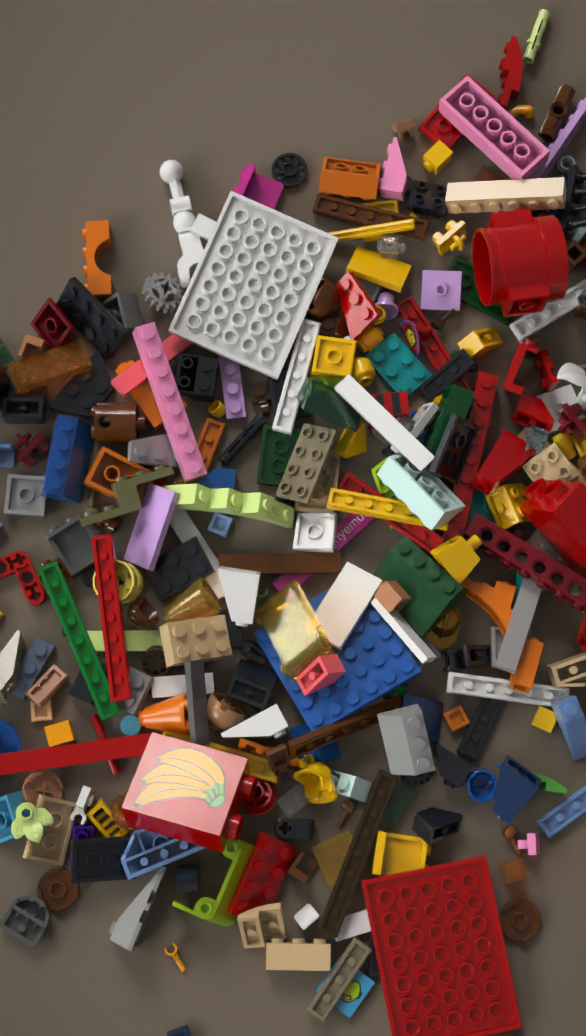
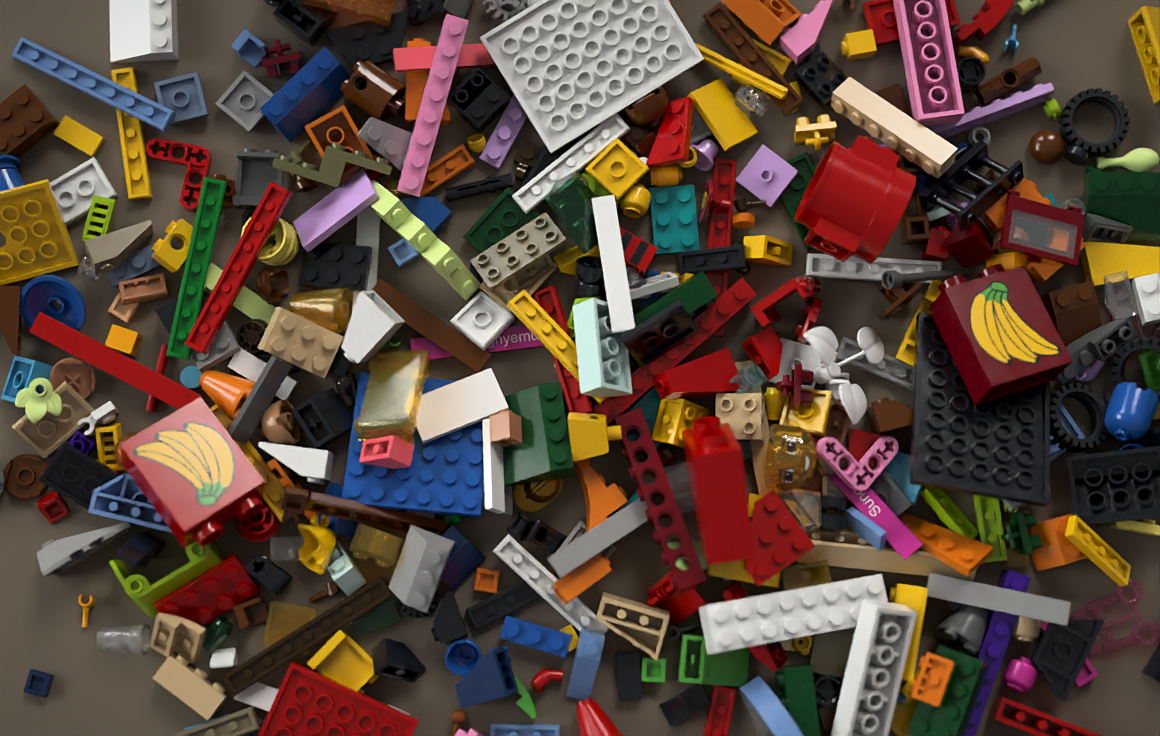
camera: 35 degrees right, 5 degrees up
(45, 646) = (163, 251): none -> yellow brick
(95, 897) = (53, 507): none -> red slope
(222, 957) = (125, 639): none -> clear plant
(288, 898) = (217, 633): none -> clear green cone
(361, 748) = (378, 545): none -> clear yellow brick
(369, 446) = (589, 276): none -> black wheel
(447, 333) = (743, 220): none -> orange tile
(522, 732) = (536, 636): none -> blue plate
(531, 121) = (970, 73): none -> black wheel
(539, 86) = (1012, 43): none -> dark azure hand
(549, 758) = (544, 677): none -> red arm

